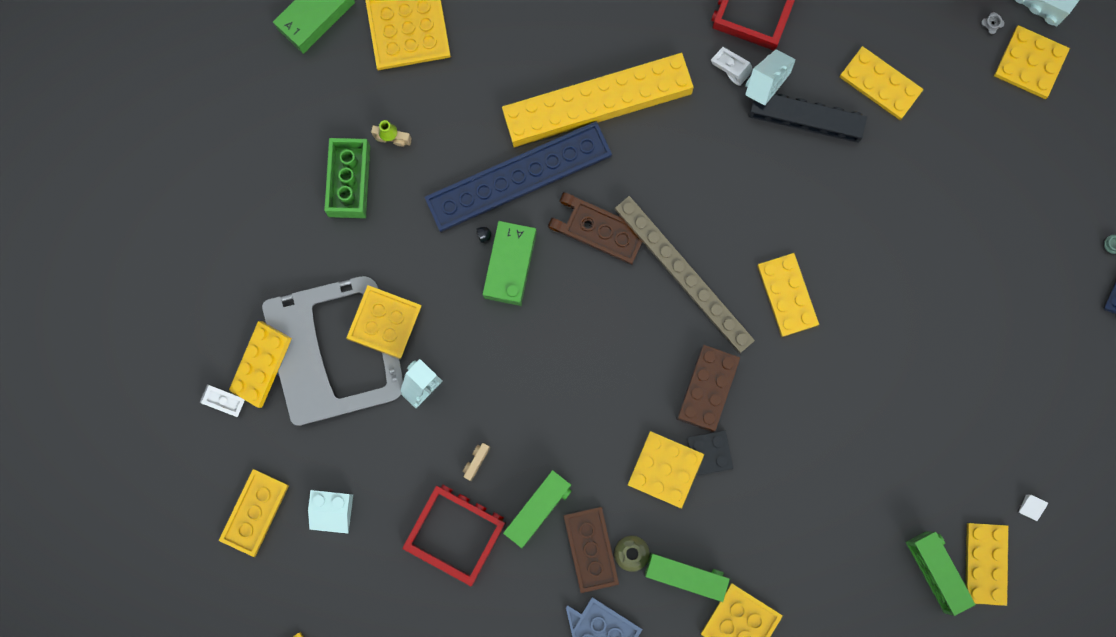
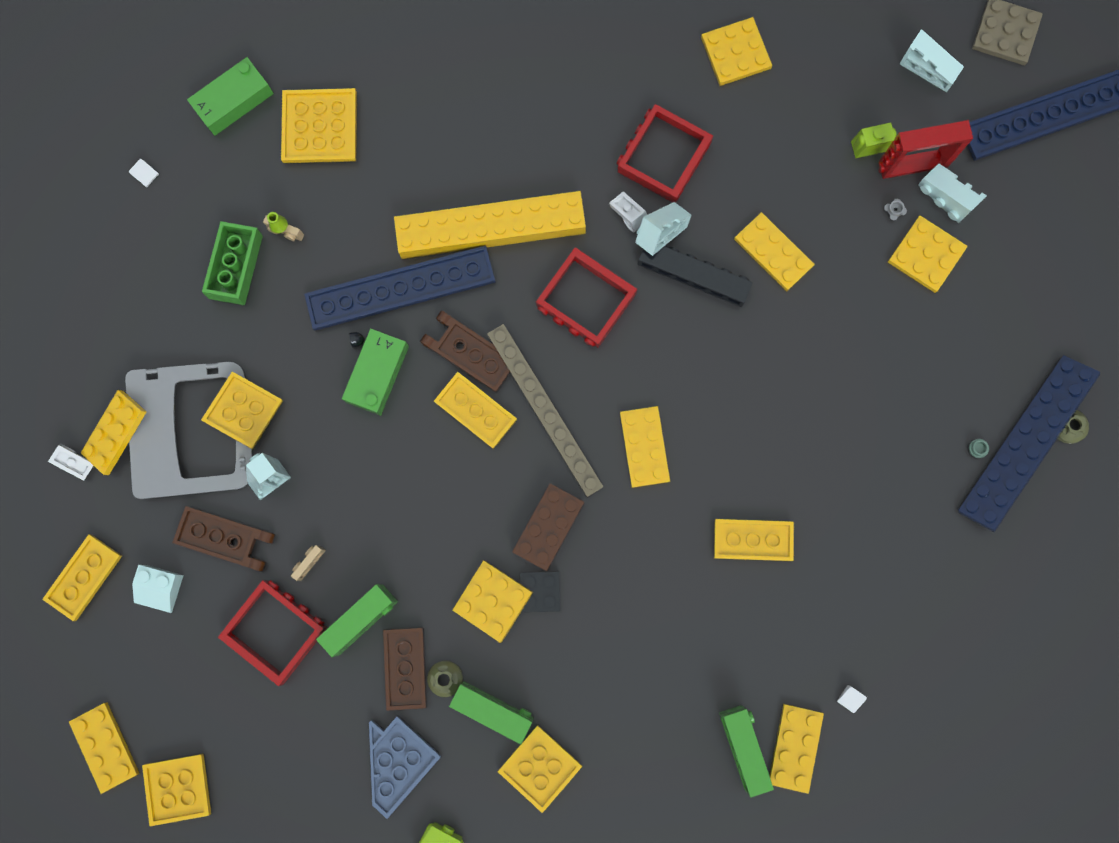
camera: 10 degrees right, 0 degrees up
(239, 101) = (143, 172): none -> white slope
(378, 451) = (214, 536): none -> reddish brown hinge
(615, 285) = (475, 410): none -> yellow plate
(718, 131) = (603, 273): none -> red window
(911, 368) = (753, 540): none -> yellow plate

